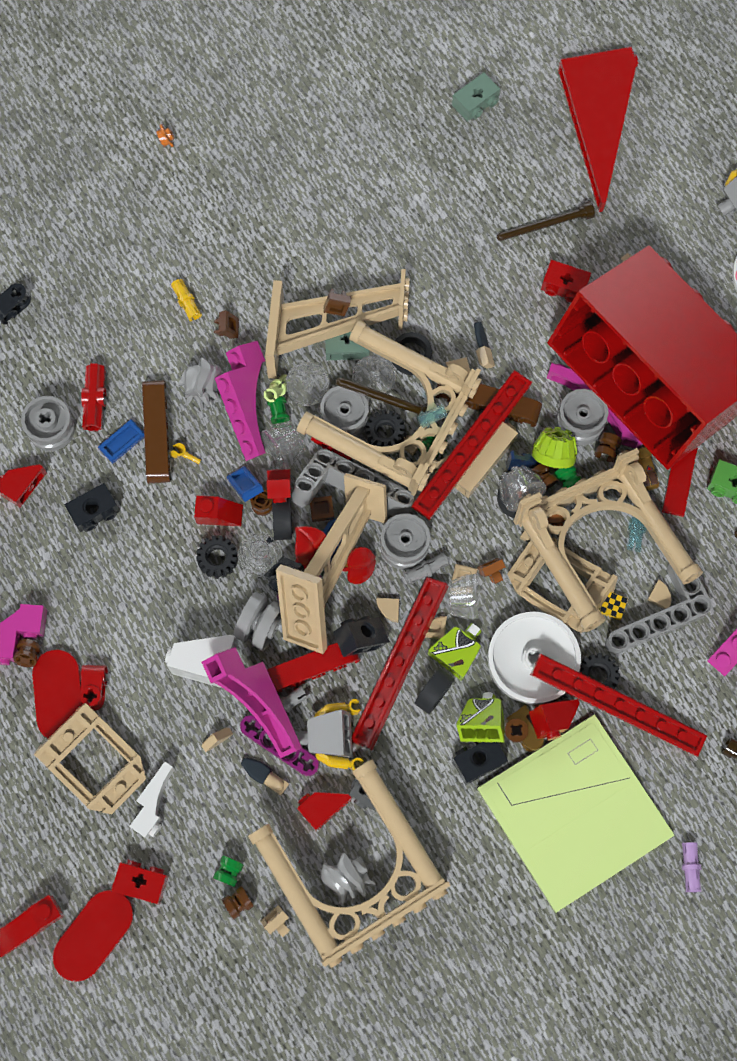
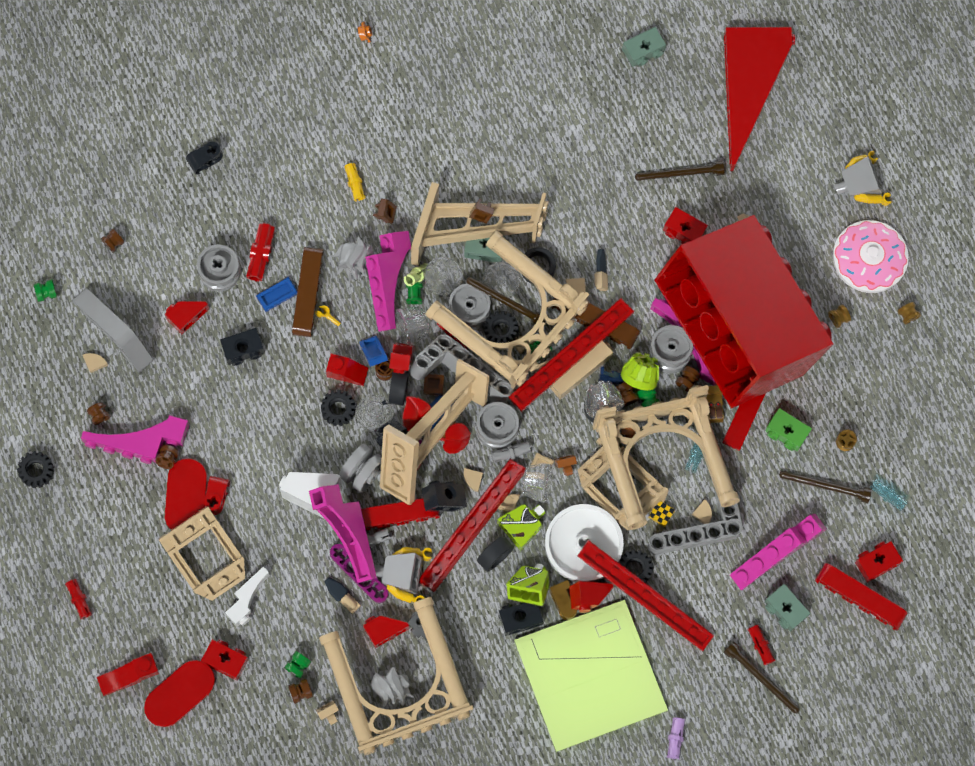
camera: 10 degrees right, 0 degrees up
(216, 738) = (308, 557): tan tile -> none
(431, 416) = (540, 325): clear light blue pin -> none
(516, 730) = (553, 600): reddish brown wheel -> none

